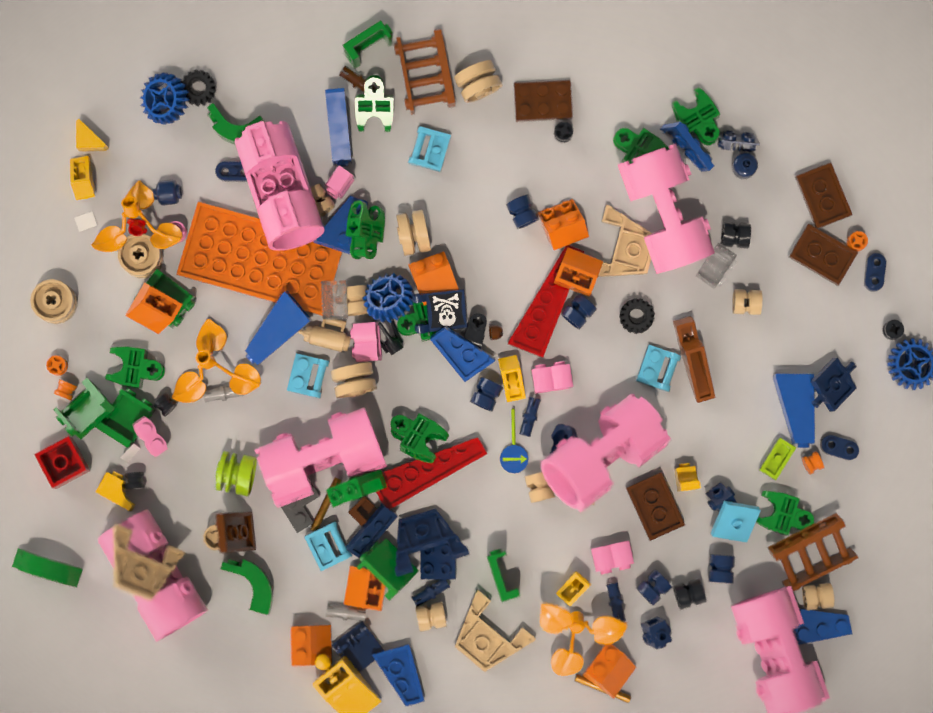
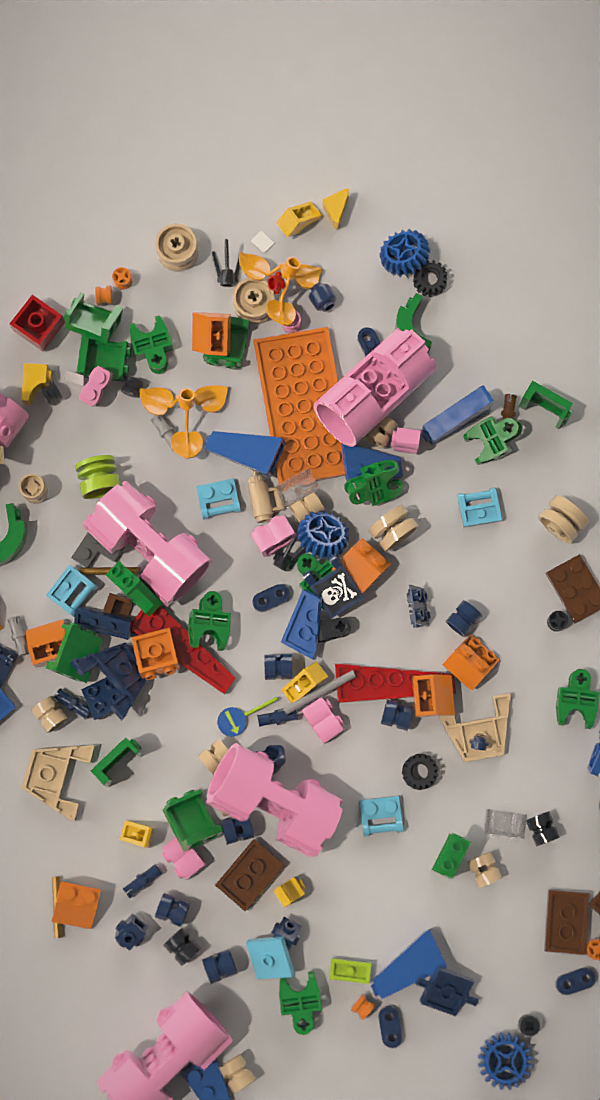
camera: 70 degrees right, 5 degrees down
(104, 268) = (227, 277): none -> black plant
(235, 532) = (44, 501): reddish brown plate -> none
(353, 379) = (230, 541): tan wheel -> none
(420, 371) = (271, 598): none -> dark blue plate
(423, 496) = (155, 654): none -> orange plate
(438, 60) = (550, 487): dark orange fence -> none
(495, 332) = (340, 648): reddish brown hinge -> none
(500, 246) = (418, 598): none -> dark blue hinge
(526, 369) = (319, 692): none -> light grey bar
(555, 619) = (94, 828): light orange plant -> none
(585, 535) = (191, 820): none -> green panel
(612, 505) = (230, 831): none -> dark blue wheel
(638, 252) = (479, 743): none -> dark blue plate
(679, 241) = (507, 774): bright pink cylinder -> none
(694, 359) = (405, 845): dark orange slope -> none
(723, 324) = (451, 856): none -> green panel
(805, 537) = (286, 1033): dark orange fence -> none

